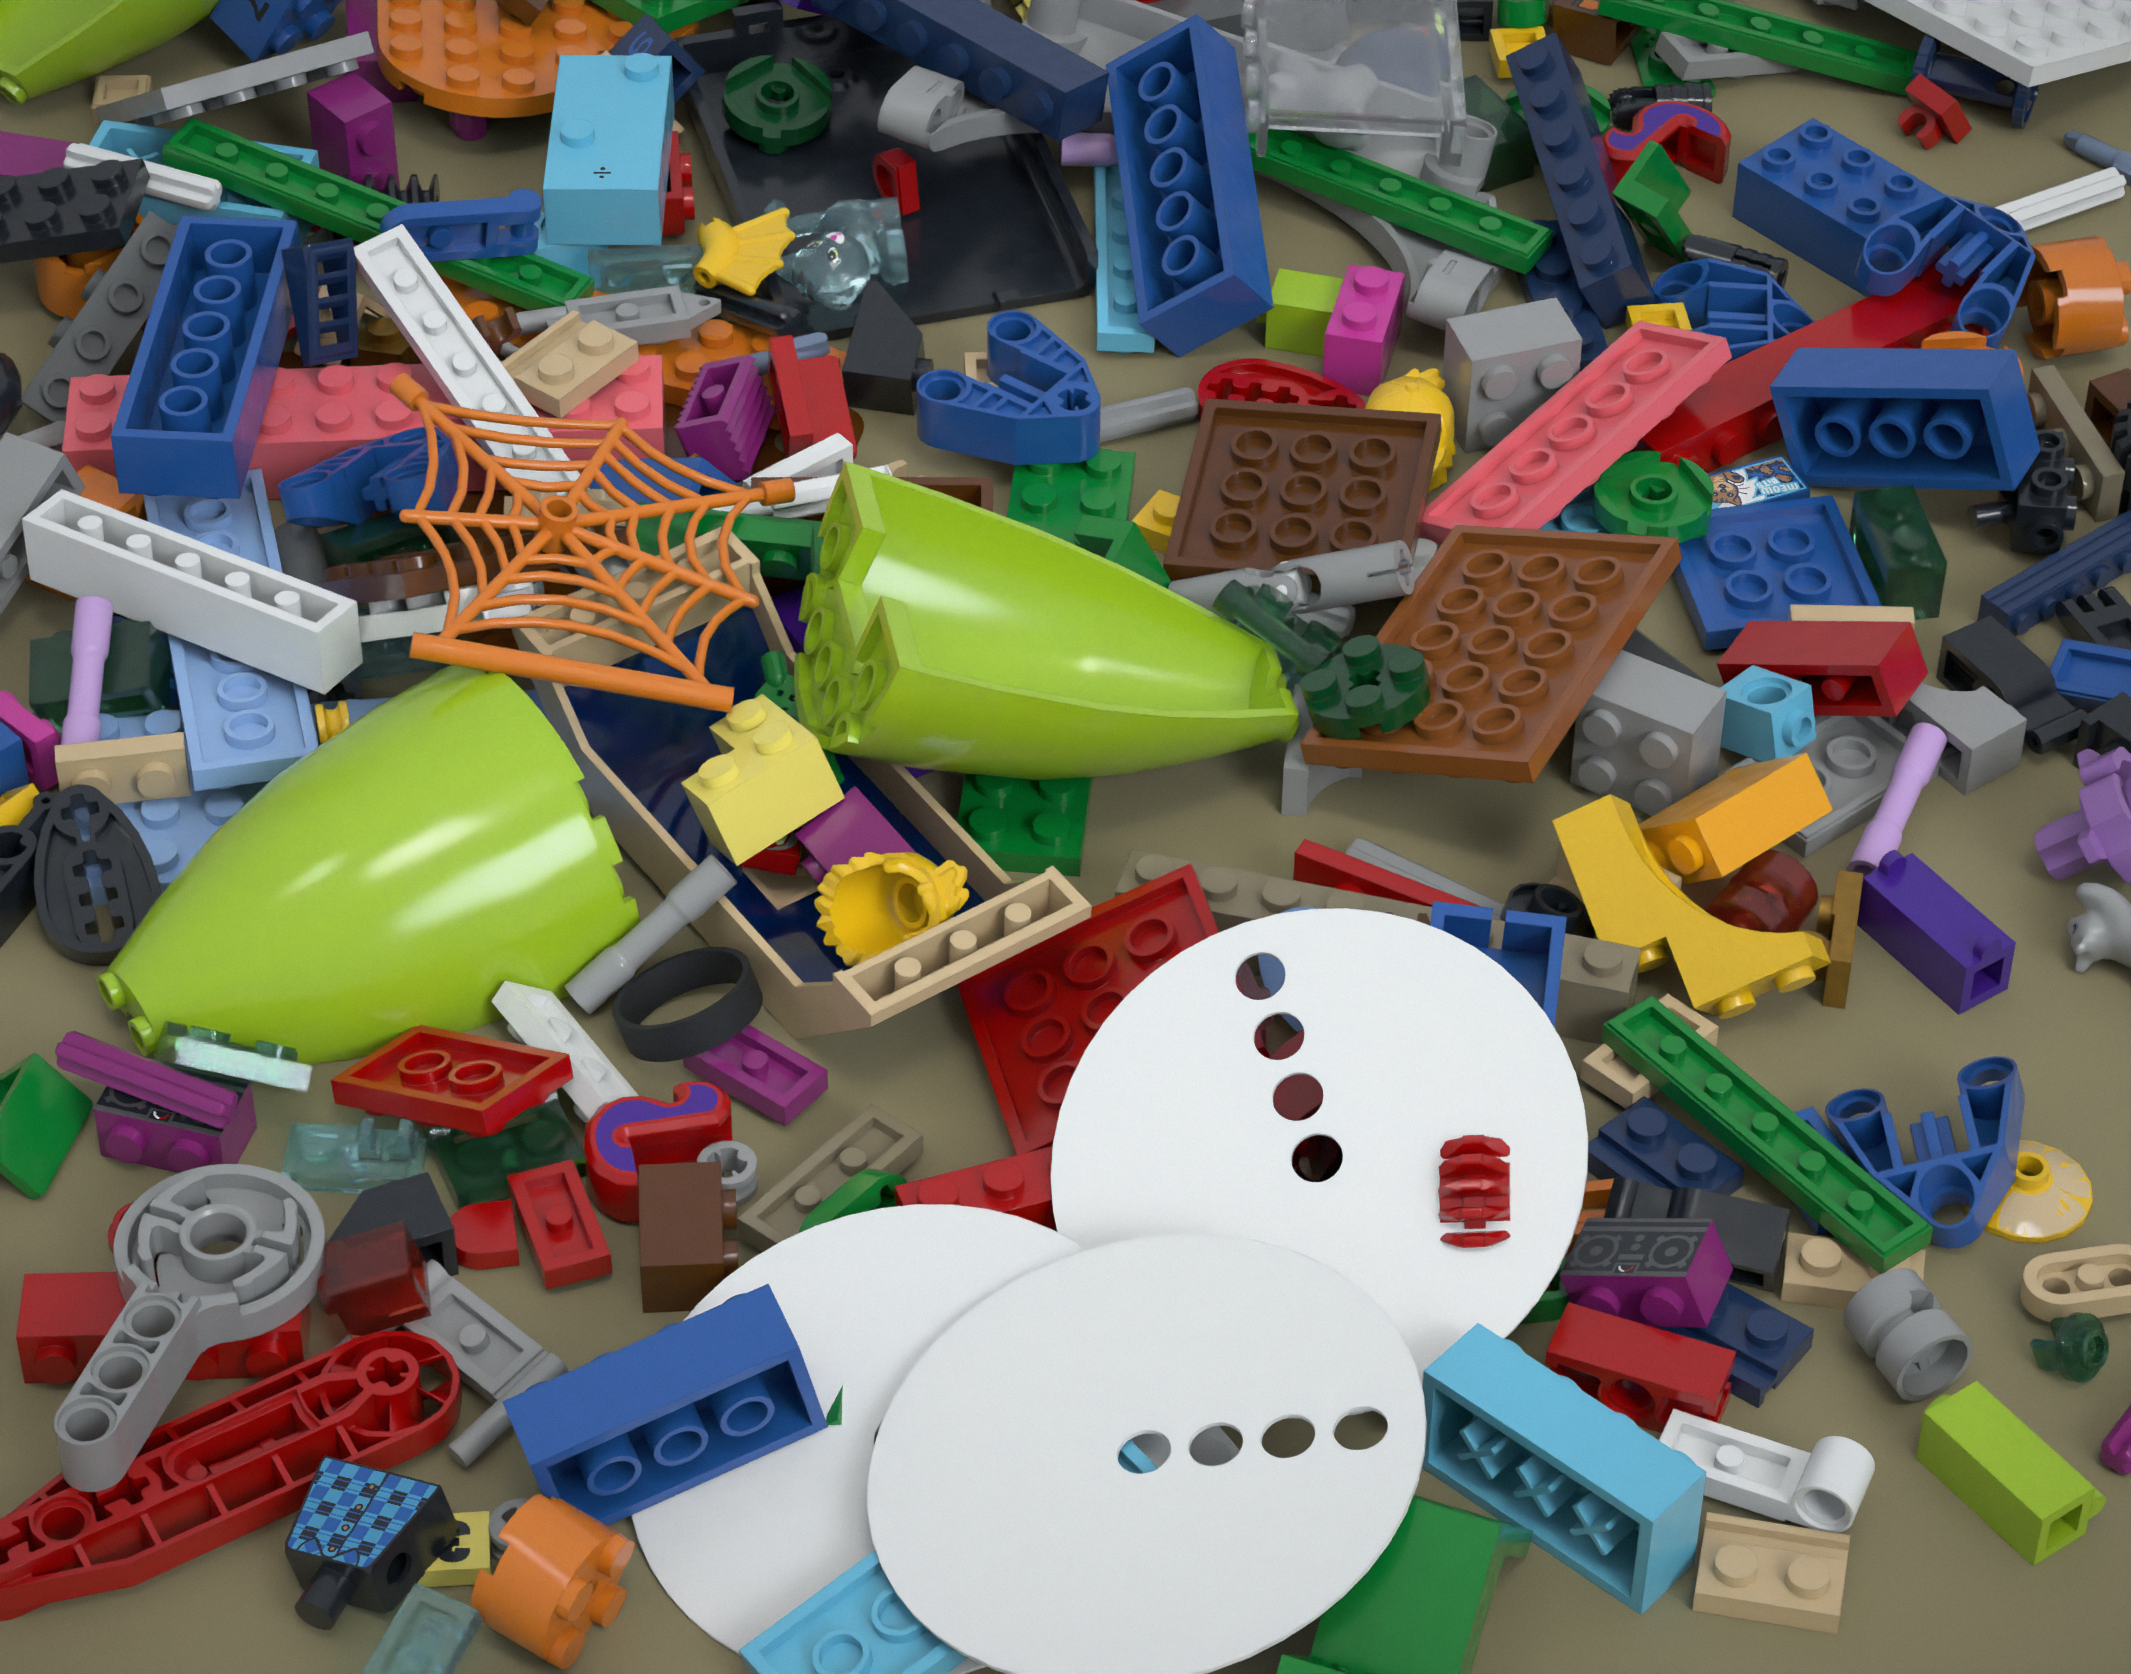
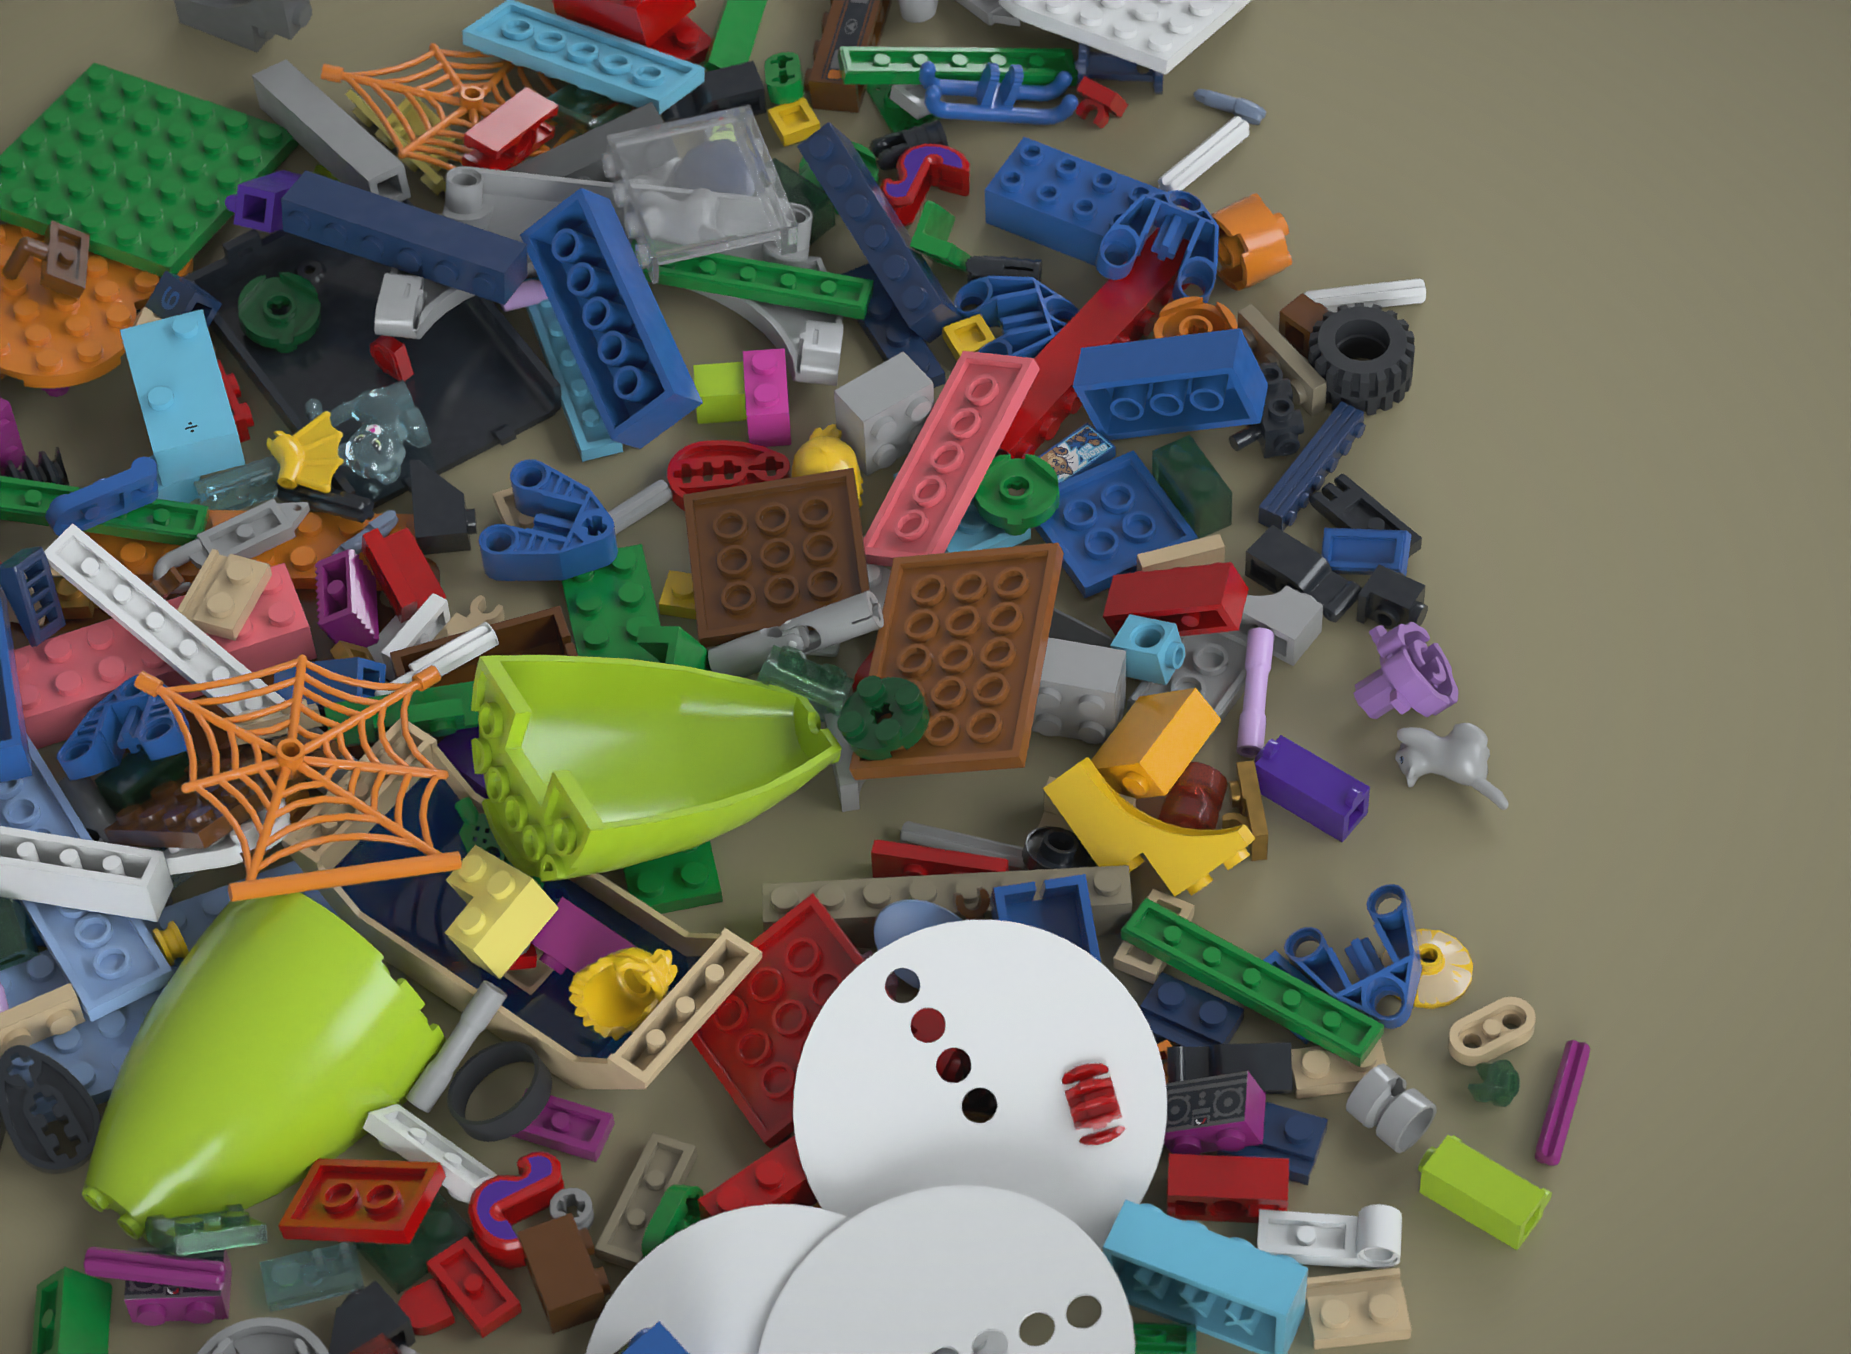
camera: 15 degrees left, 10 degrees up
(1793, 81) = (997, 99): none -> blue piece

